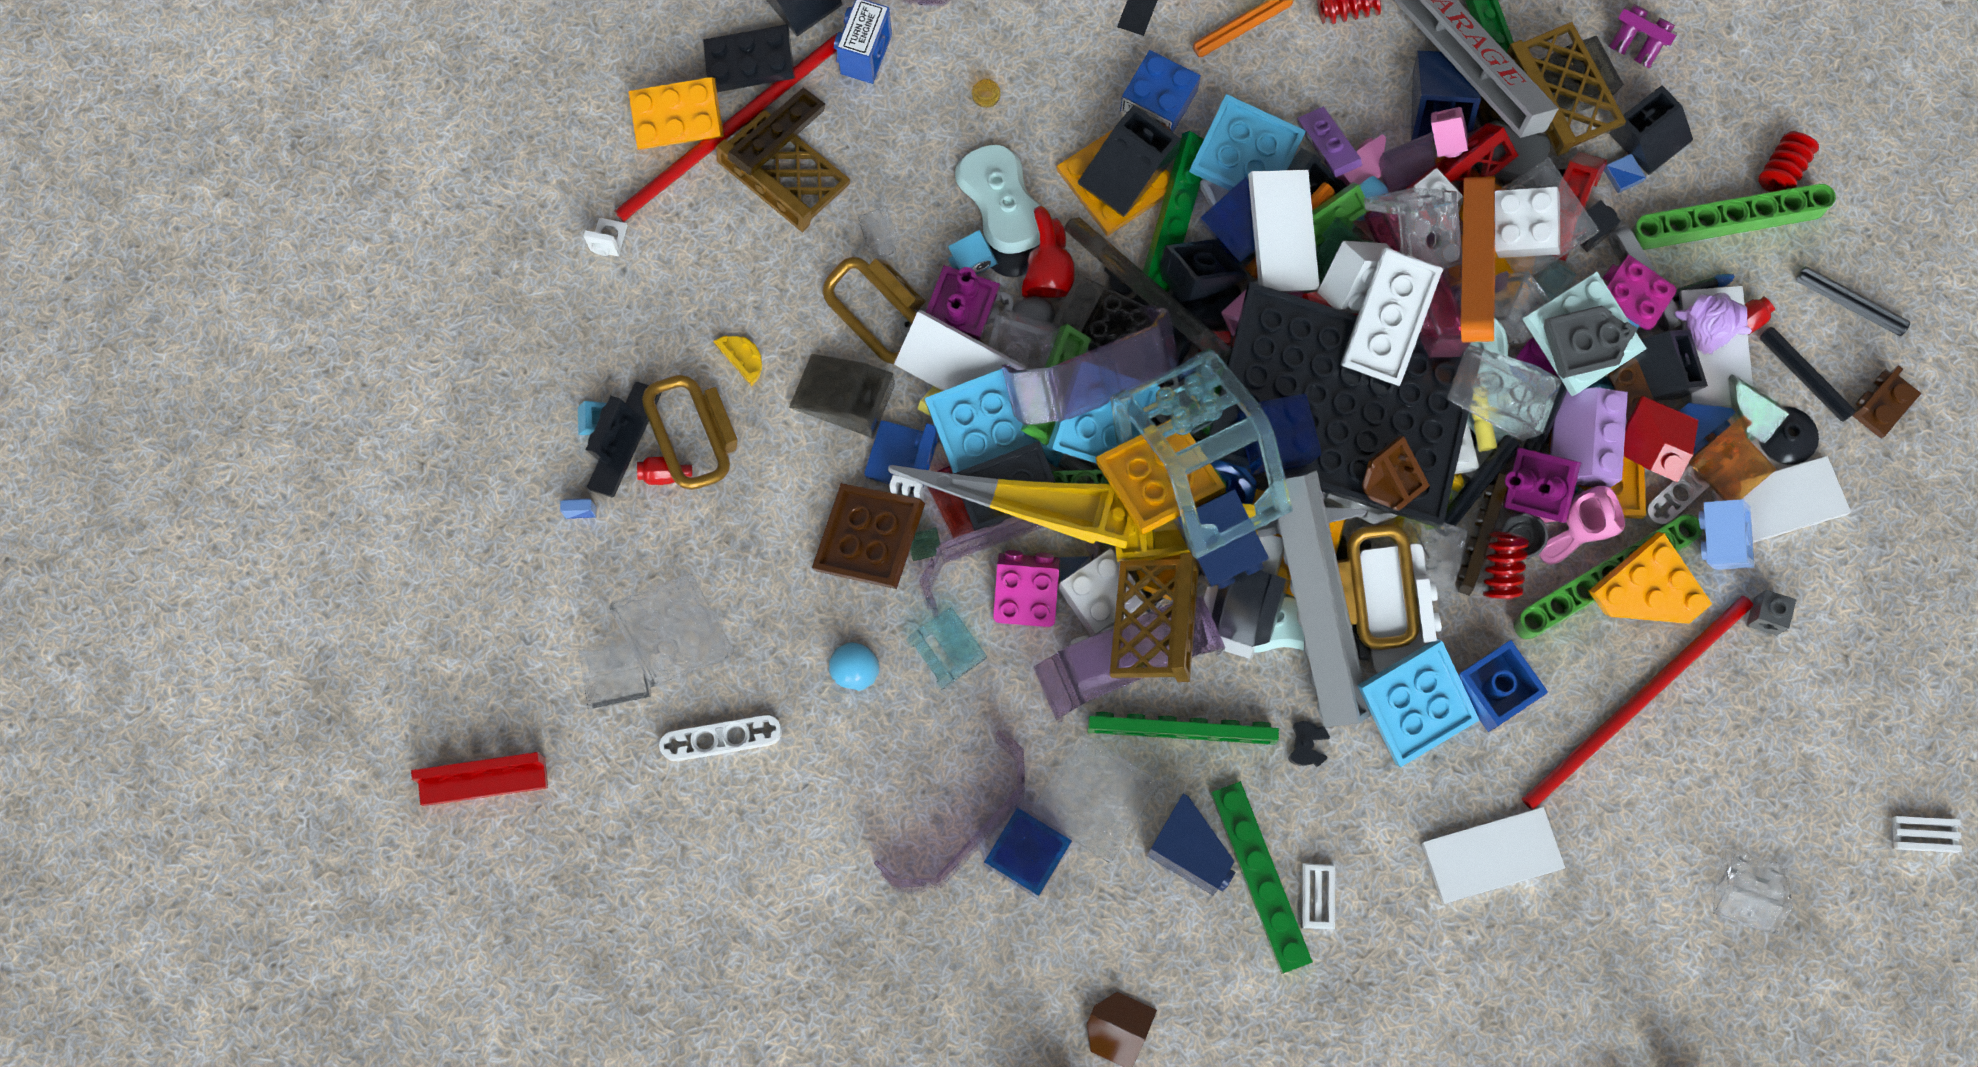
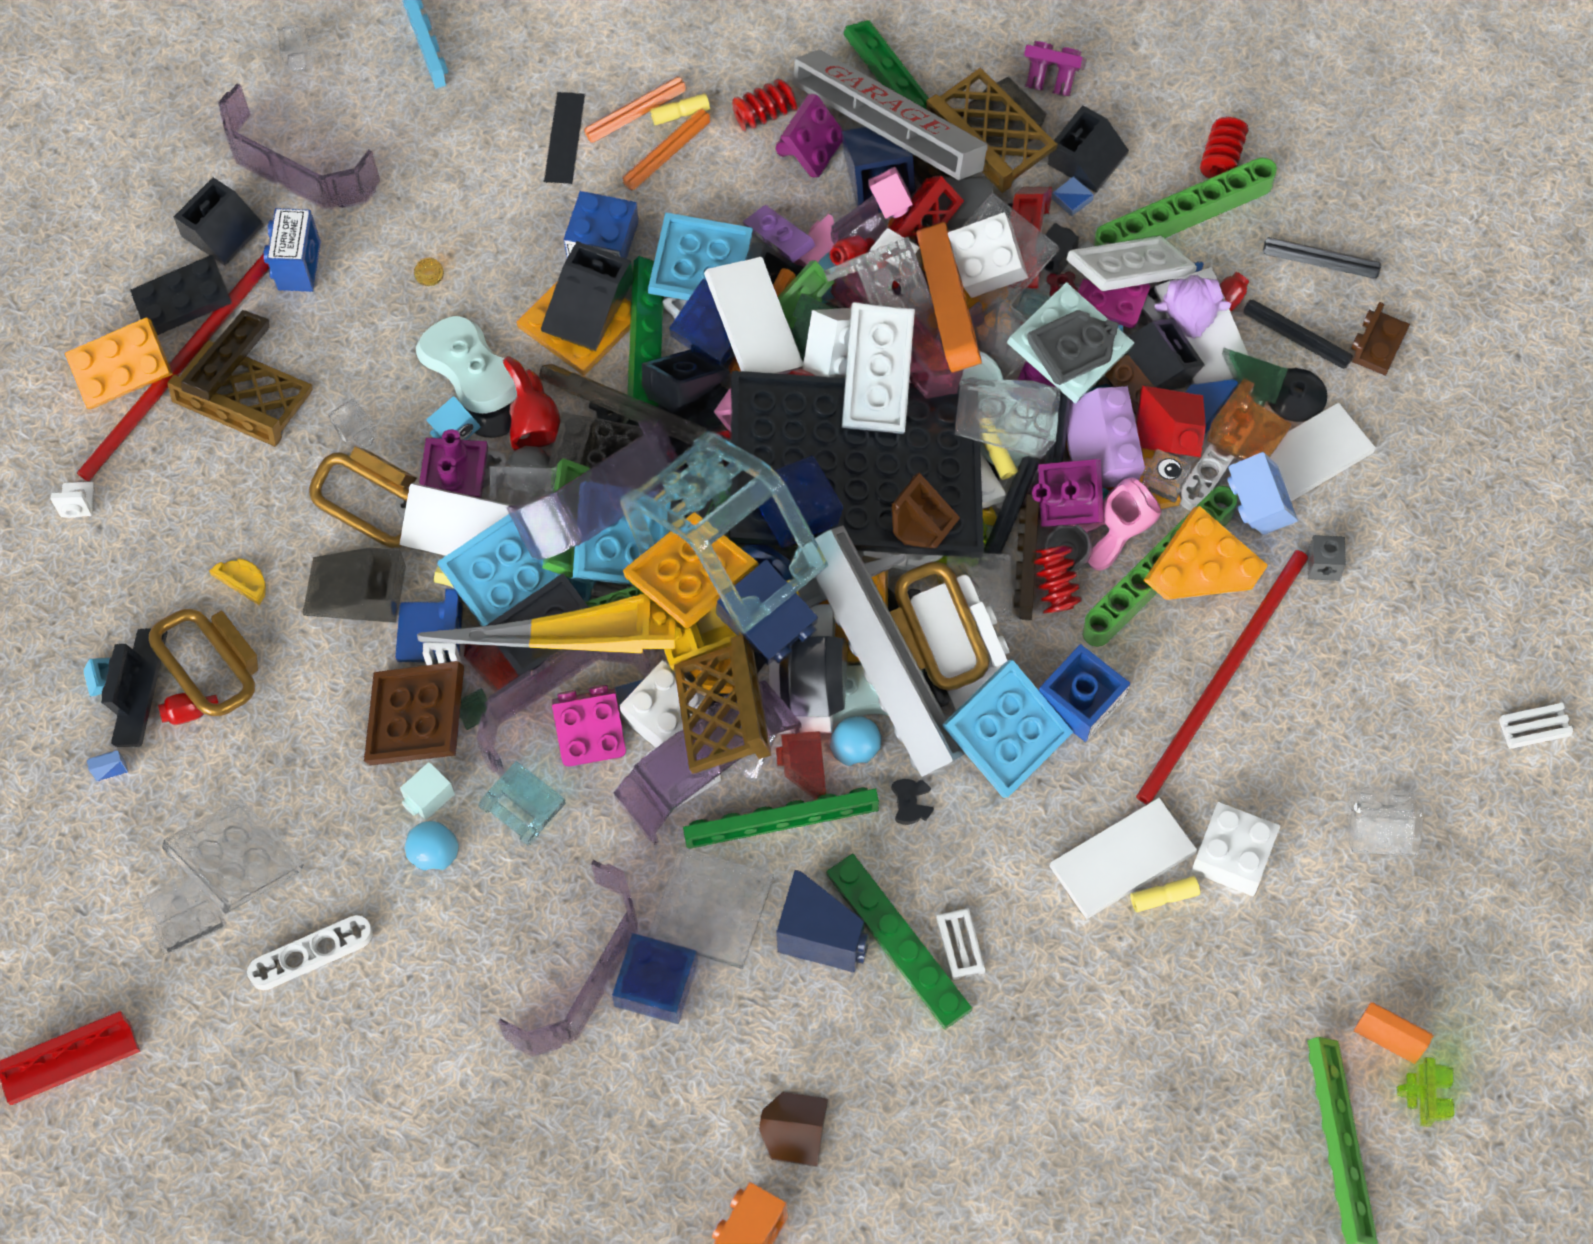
camera: 15 degrees left, 10 degrees down
(861, 614) = (426, 791): none -> light aqua brick
(1217, 681) = (803, 761): none -> clear red slope
(1271, 671) = (855, 740): none -> medium azure hair
(1386, 48) = (811, 136): none -> magenta plate
(1395, 179) = (850, 248): none -> red plant
(1523, 902) = (1160, 895): none -> light yellow piece
(1582, 268) = (1055, 281): none -> dark red plate
(1603, 879) = (1235, 849): none -> white brick
(1639, 489) = (1165, 475): none -> clear brick
(1664, 263) = (1131, 263): none -> white tile

